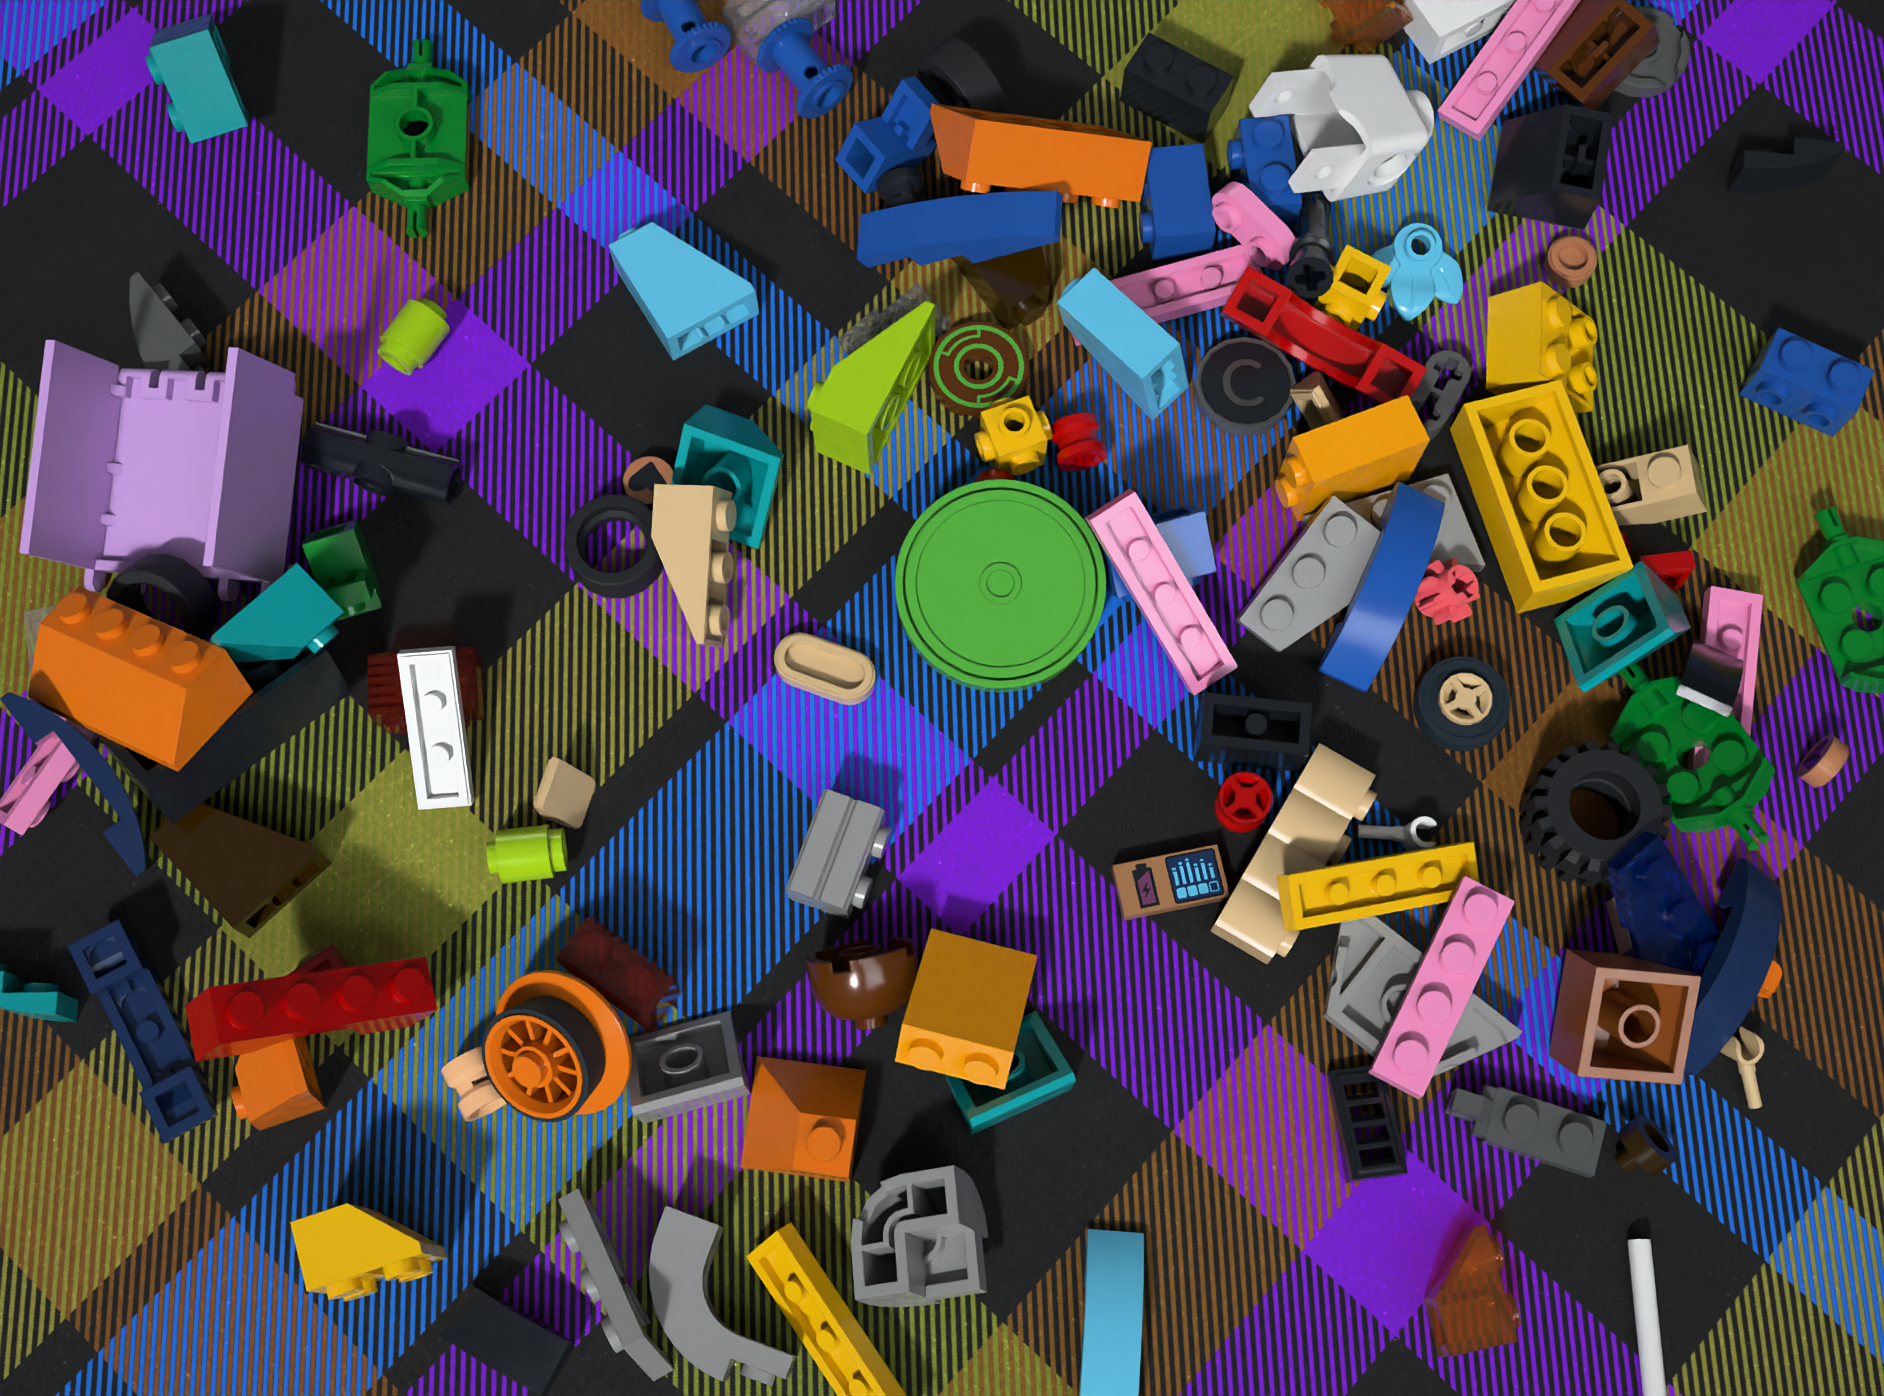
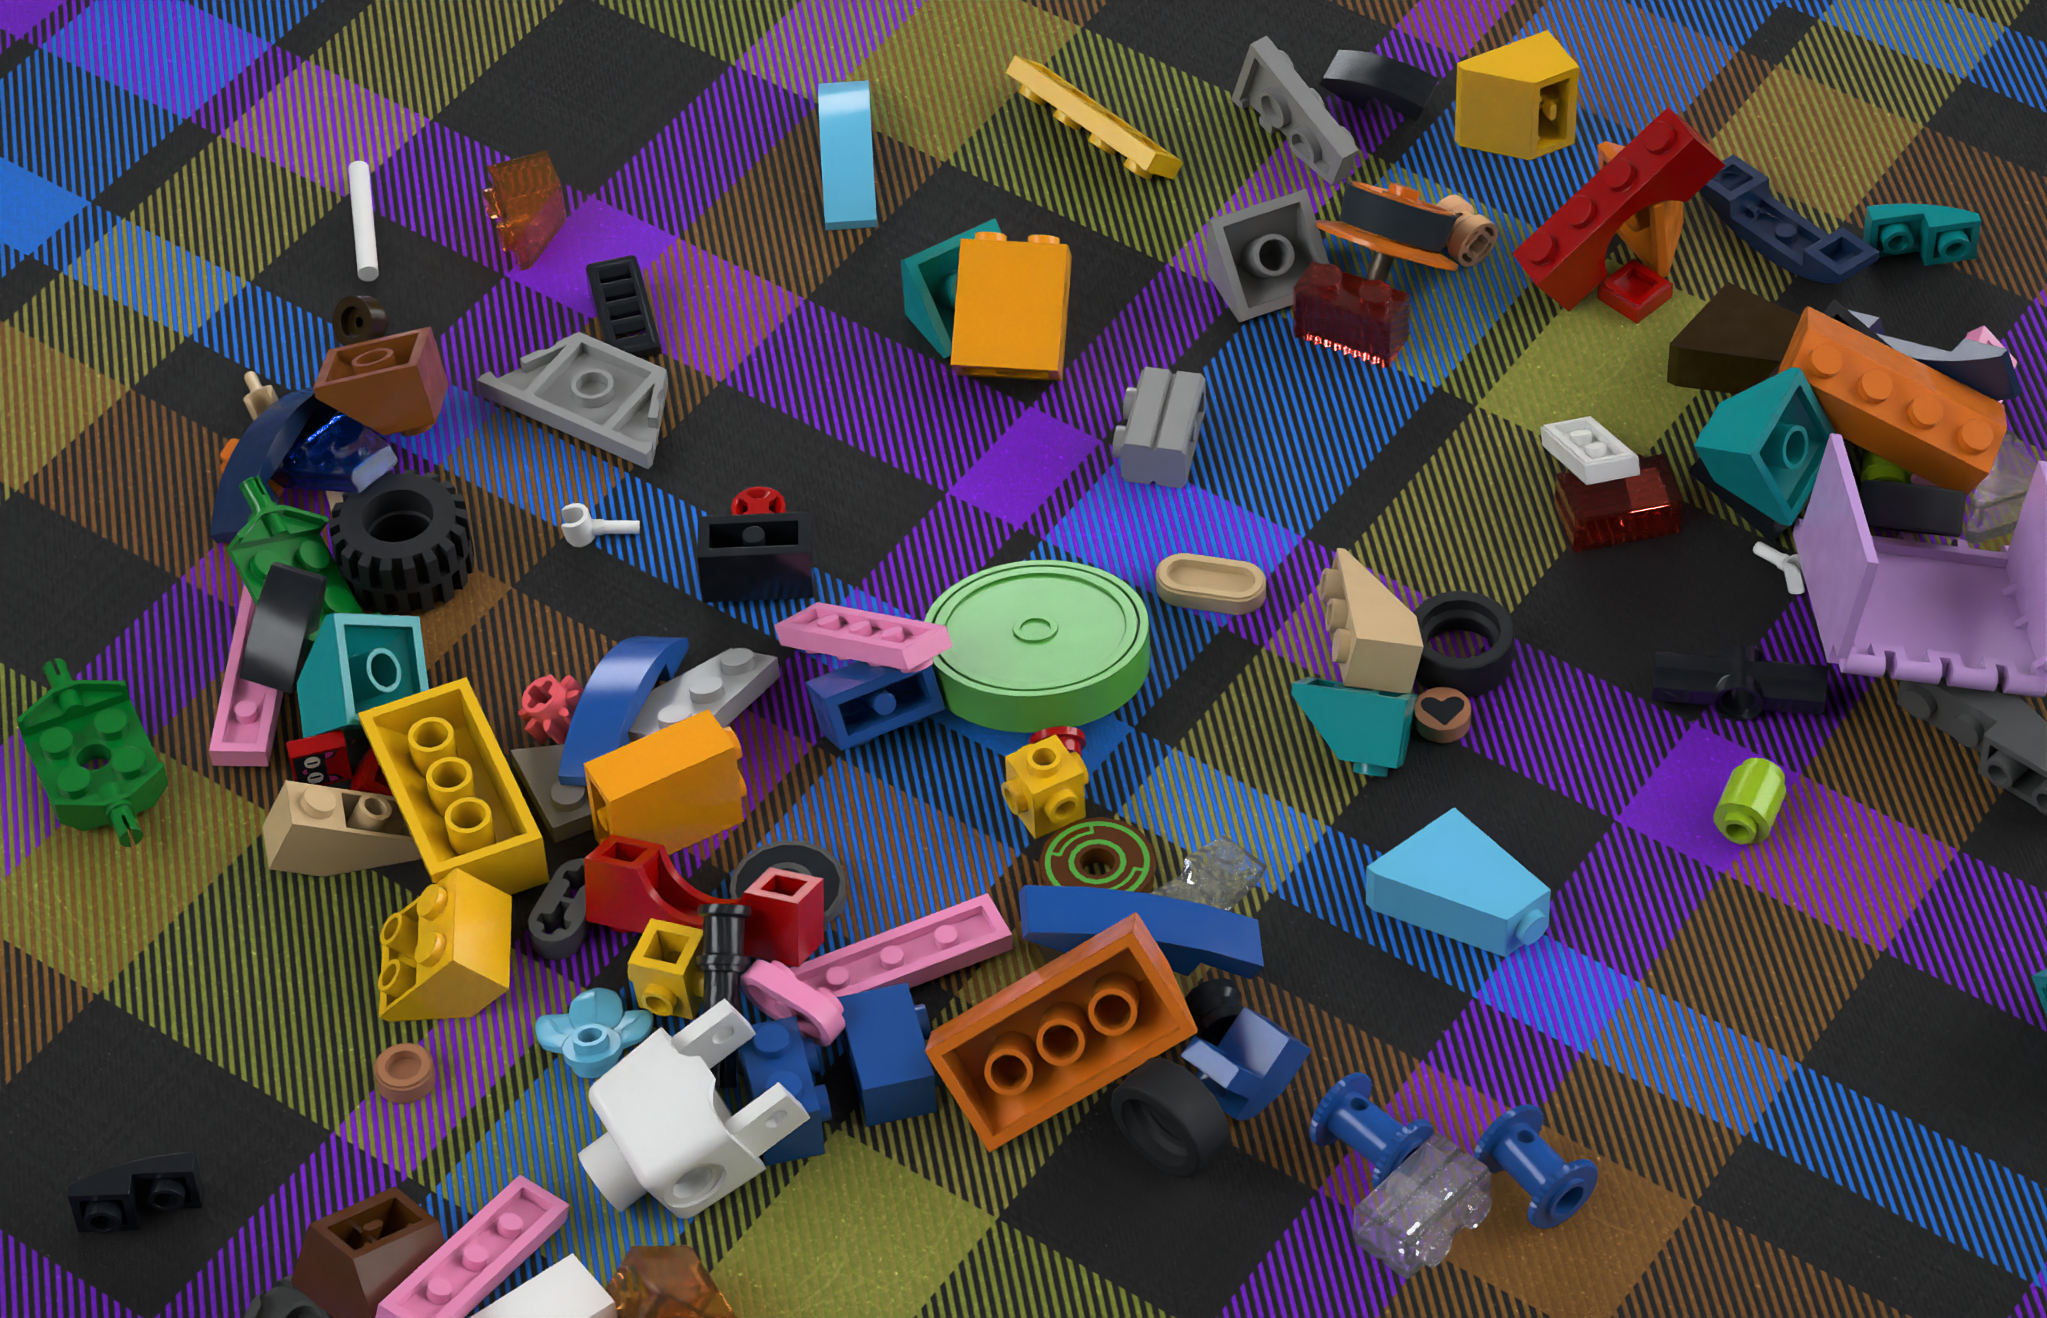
camera: 175 degrees right, 25 degrees down
(344, 568) = (1733, 573): green brick -> none
(425, 167) = (1823, 1053): green plate -> none
(527, 853) = (1469, 391): lime brick -> none
(564, 794) = (1450, 444): tan slope -> none
(682, 1302) = (1211, 107): light grey arch -> none
(803, 1119) = (1149, 246): orange slope -> none
(863, 979) = (1117, 334): reddish brown cylinder -> none
(870, 390) = (1212, 780): lime slope -> none
(920, 1240) = (1027, 170): light grey brick -> none
(1078, 442) = (972, 798): red wheel -> none
(1124, 342) = (930, 859): medium azure slope -> none
(1170, 882) = (827, 460): tile -> none
(1176, 88) = (902, 1174): black brick -> none
(1300, 838) = (707, 471): tan brick -> none
(1316, 401) = (702, 860): tan slope -> none
(1374, 885) = (619, 450): yellow plate -> none
(1441, 987) = (555, 393): bright pink plate -> none
(1474, 689) = (536, 628): black wheel -> none
(1531, 1128) = (476, 332): dark grey hinge -> none
(1552, 165) = (430, 1139): black slope -> none
(1806, 382) = (138, 956): blue brick -> none
(1823, 761) = (158, 625): nougat tile -> none

